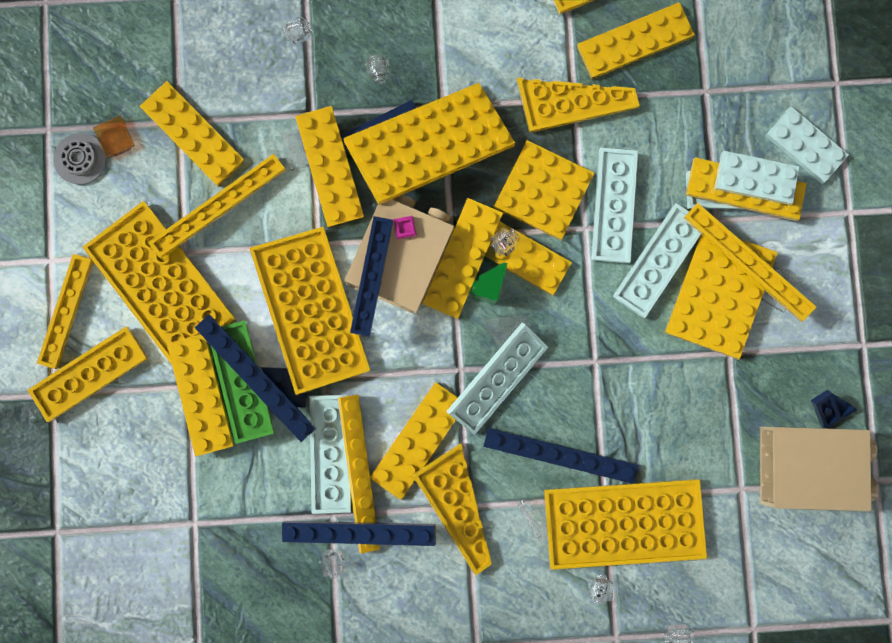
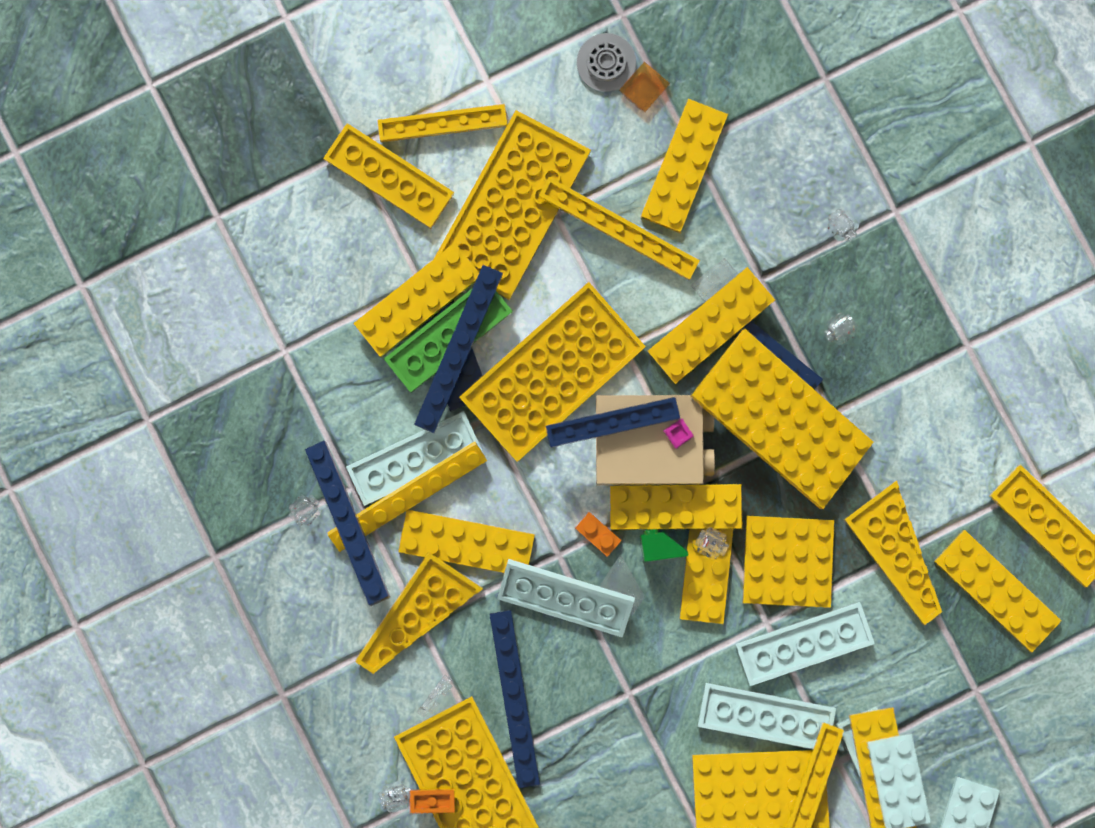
camera: 75 degrees right, 0 degrees up
(457, 330) = (598, 534): none -> orange plate
(617, 560) = (432, 801): none -> orange plate

